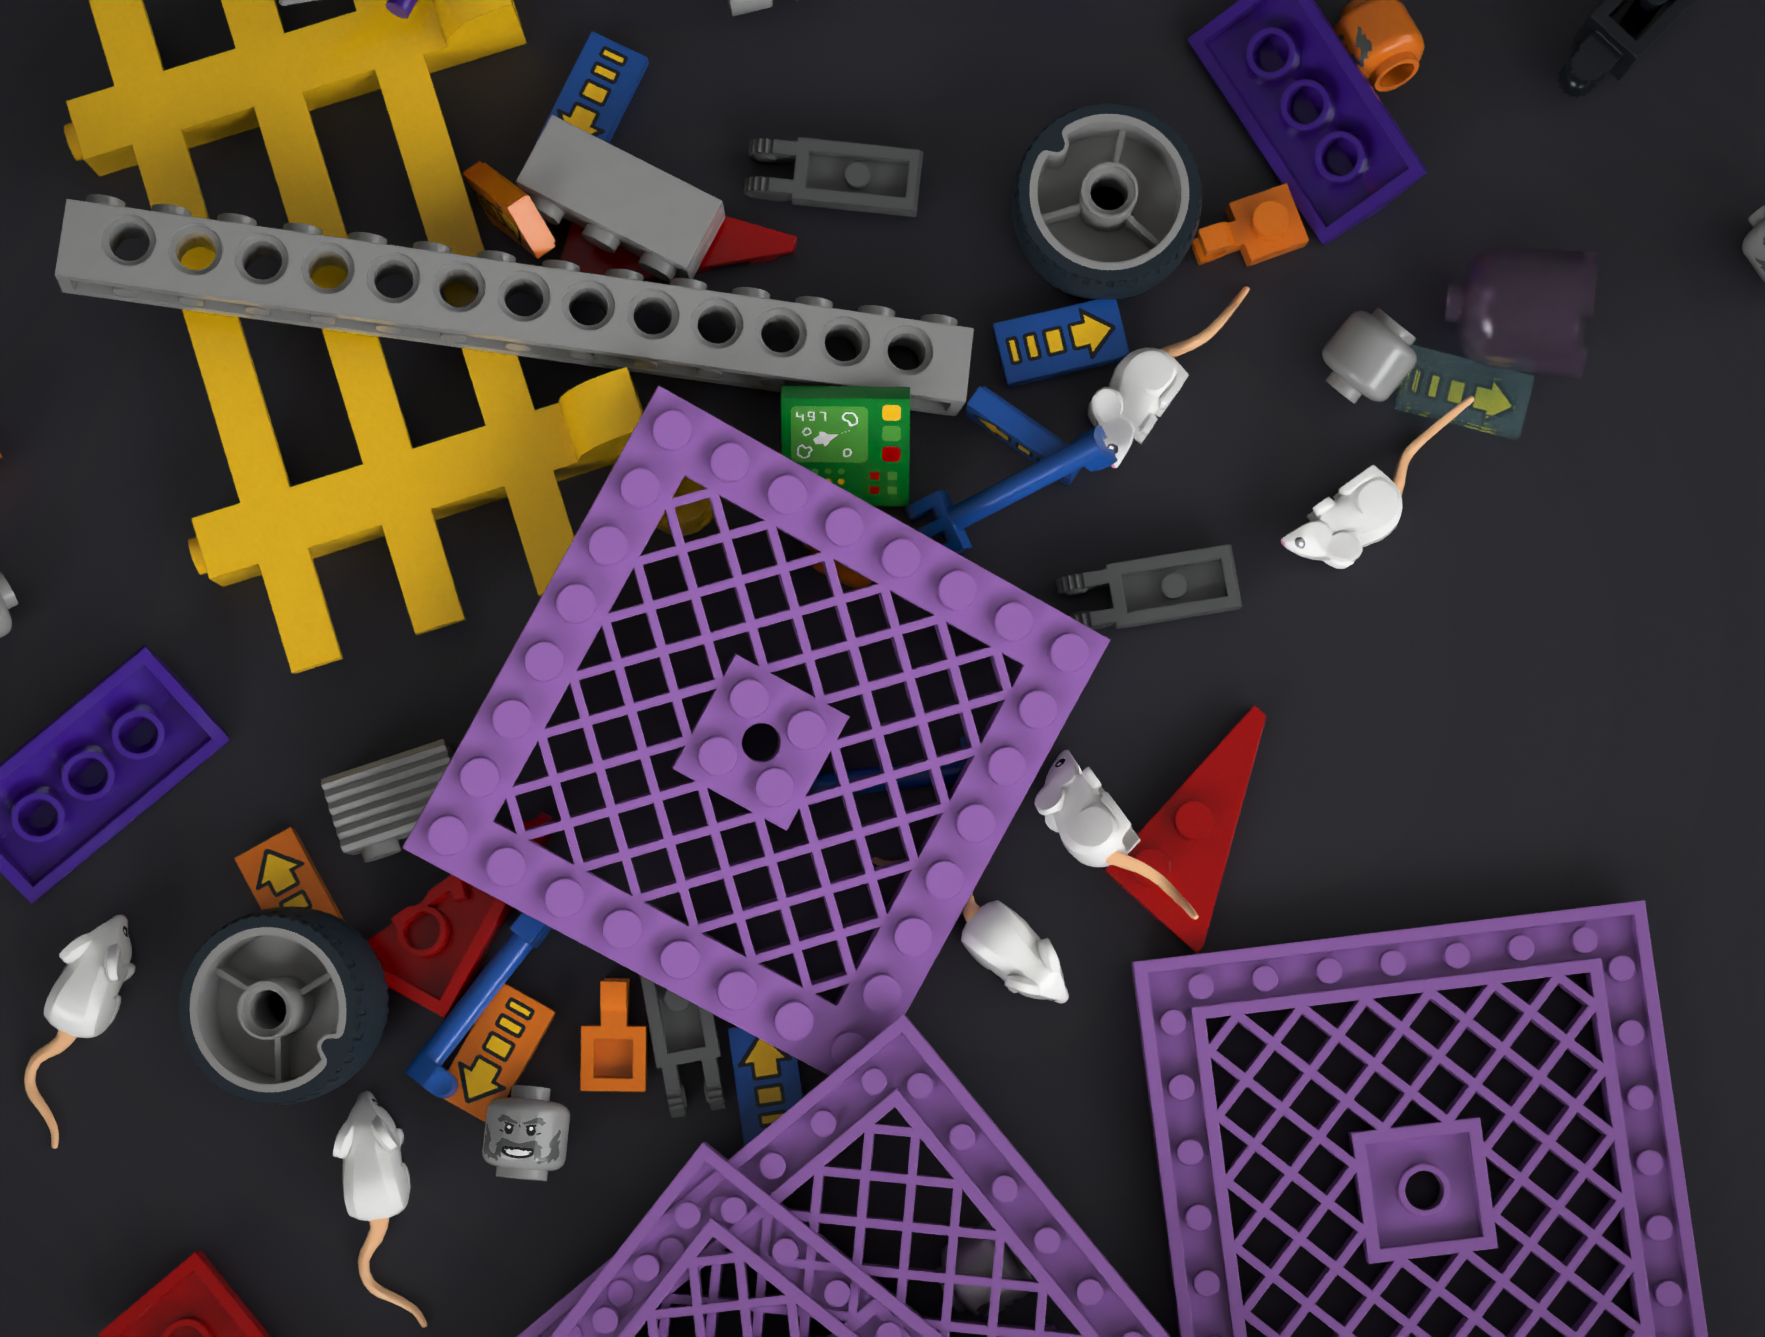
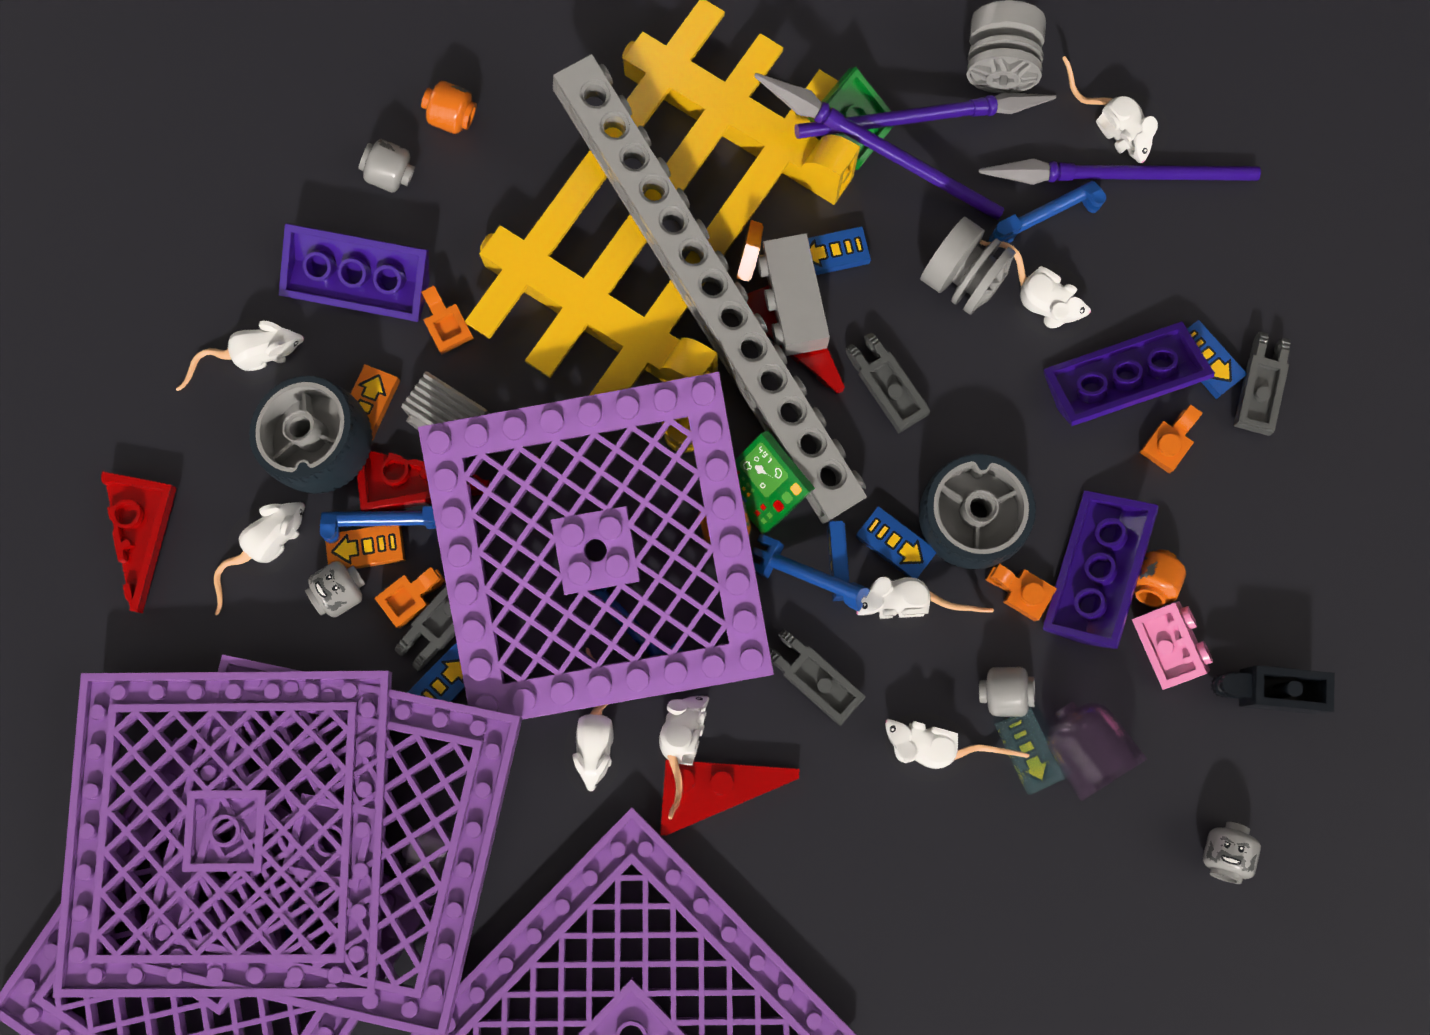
camera: 50 degrees right, 5 degrees down
(270, 704) = (445, 324): none -> orange plate
(1477, 96) = (1172, 644): none -> bright pink bracket

